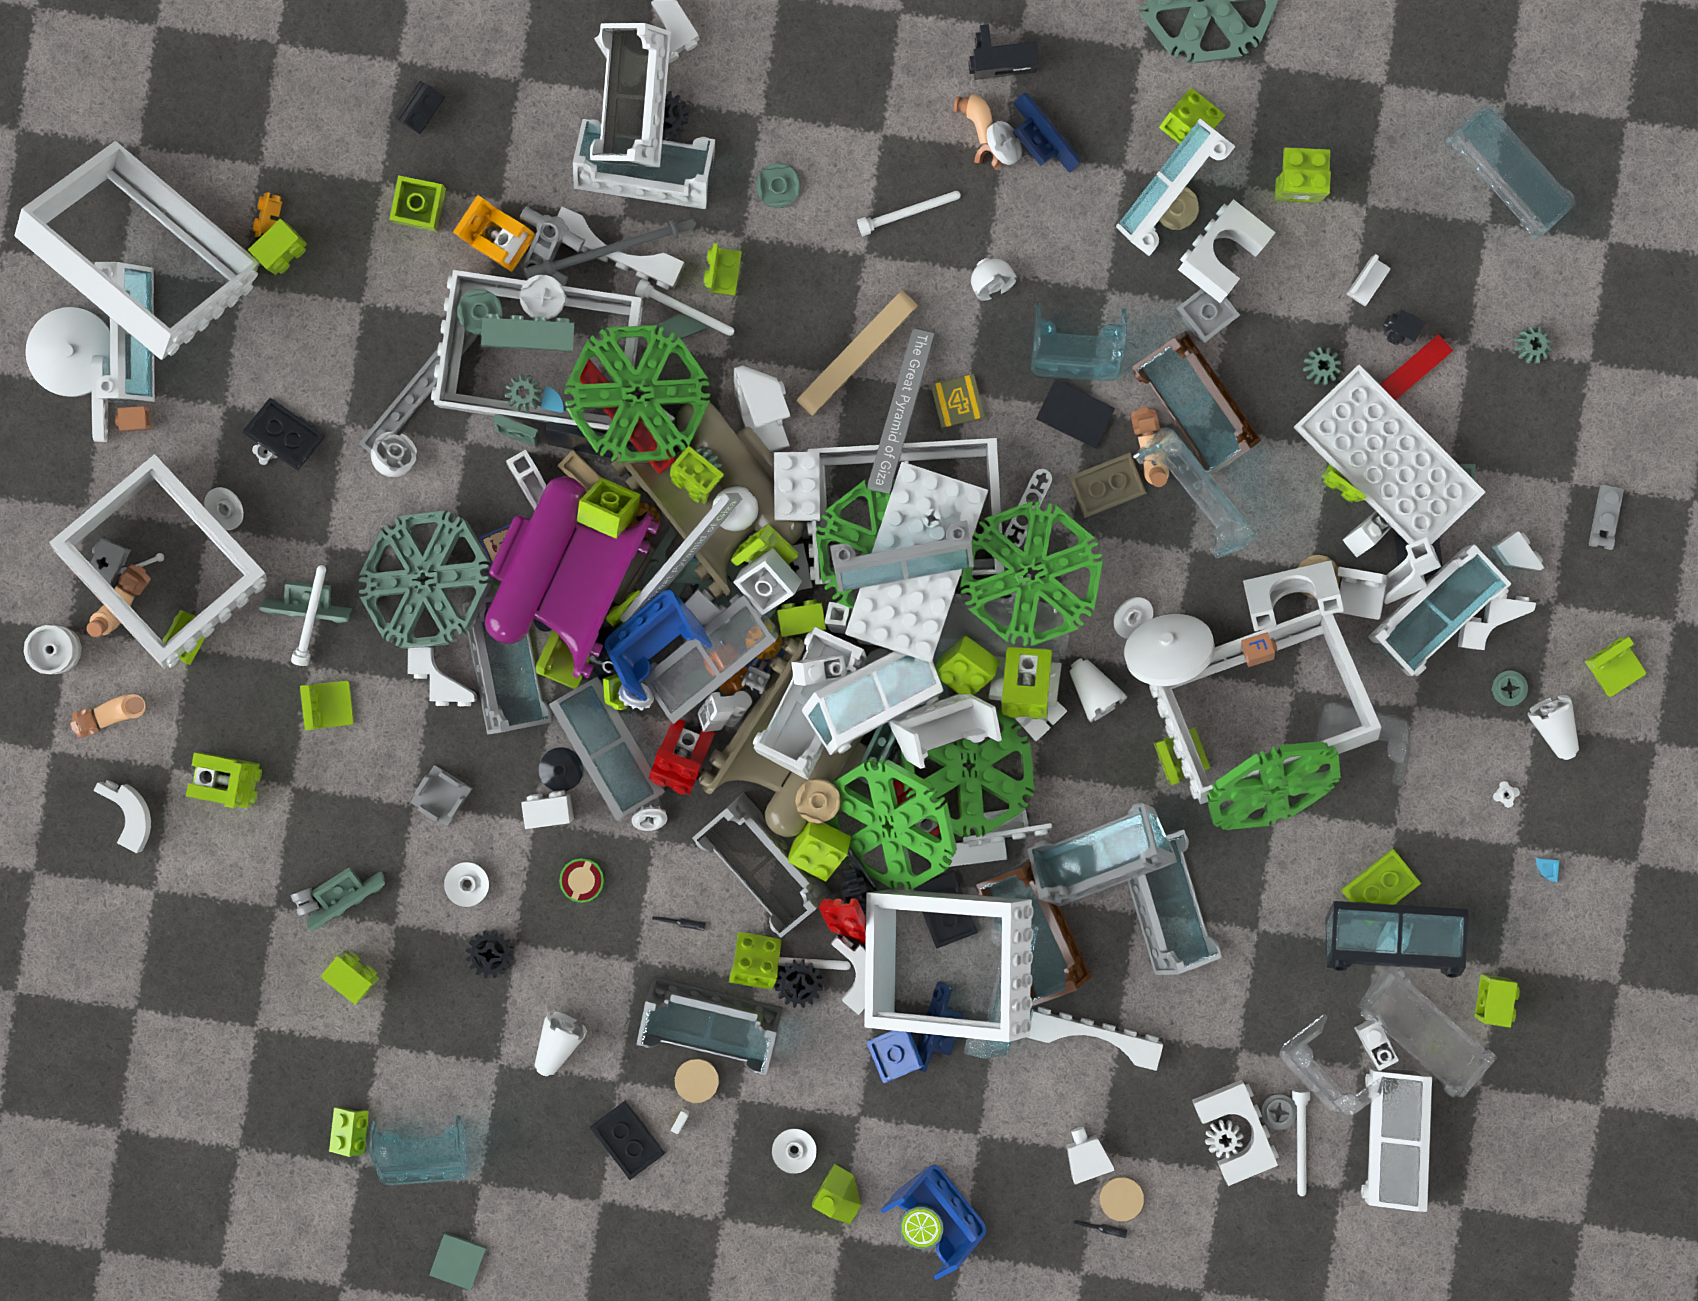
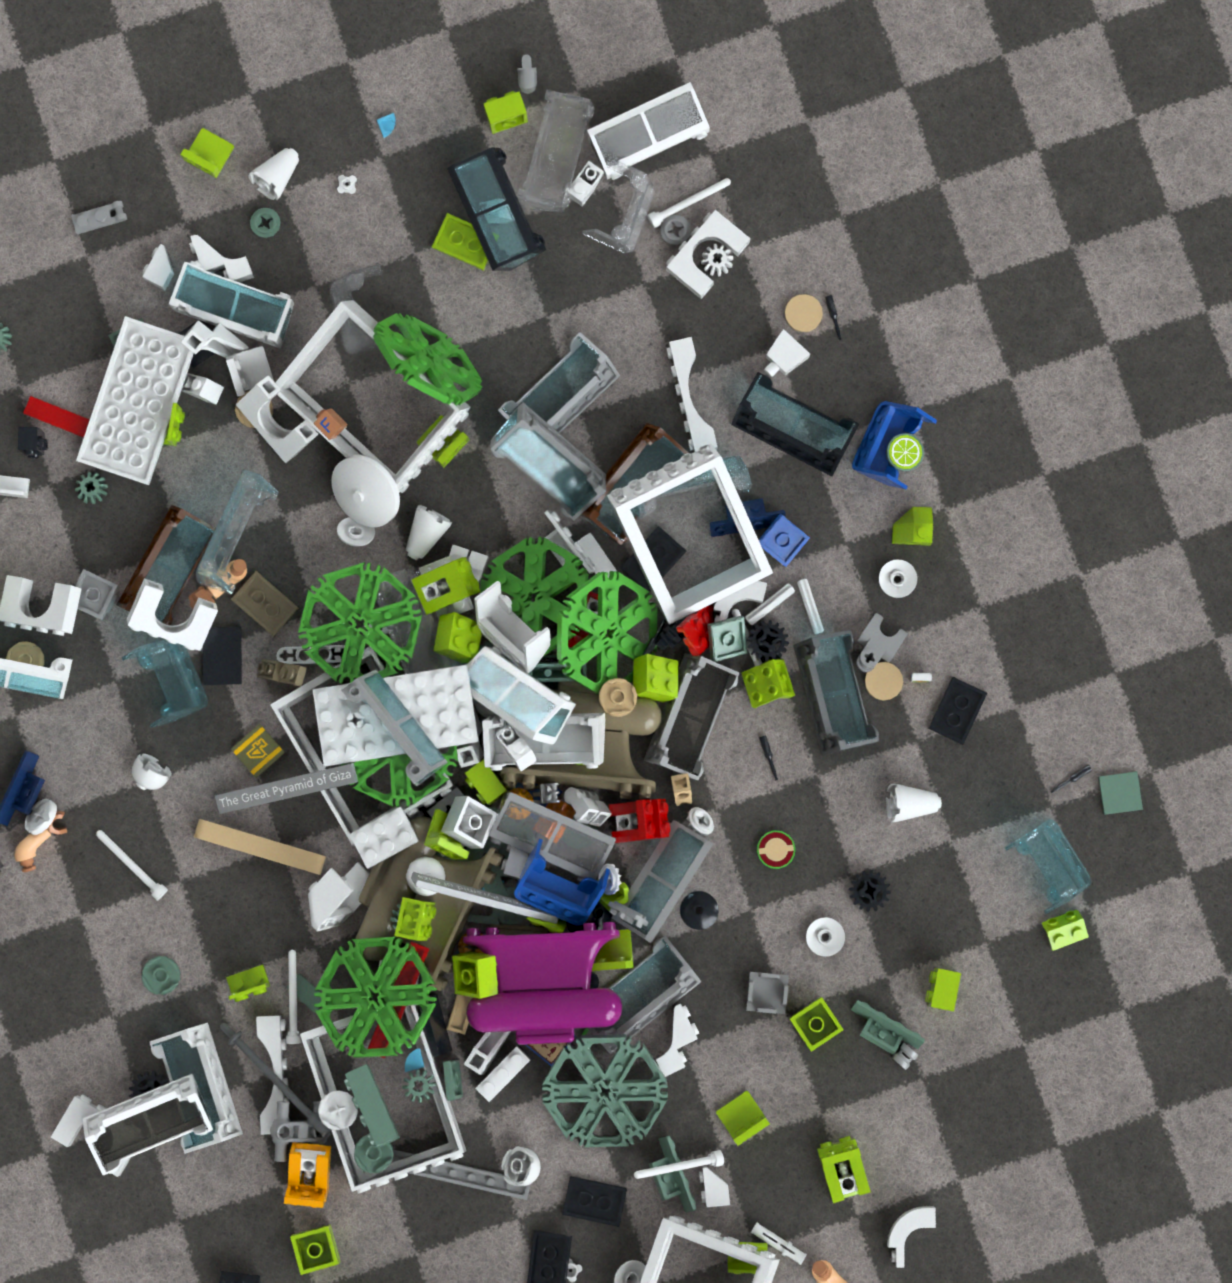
camera: 110 degrees left, 5 degrees down
(161, 688) = (799, 1256): none -> white pin
(269, 640) = (716, 1189): none -> white slope
(322, 511) = (594, 1201): none -> black tile
(383, 828) = (815, 1024): none -> lime brick
(496, 484) = (503, 1074): none -> white arch
(498, 1223) = (1074, 777): none -> black piece
(547, 811) = (734, 902): white brick -> none
(589, 696) = (627, 914): none -> light grey piece
(691, 816) = (681, 789): none -> tan leg
(736, 1094) = (877, 644): none -> light grey piece
(812, 1045) = (810, 606): none -> white axle
(822, 943) = (727, 638): none -> sand green tile
(836, 1005) = (770, 604): none -> white axle
(1007, 1127) = (793, 426): none -> windscreen
(1024, 466) = (281, 672): none -> dark tan slope
(1115, 392) = (190, 633): none -> white arch
(1524, 1042) = (527, 76): none -> light grey arm

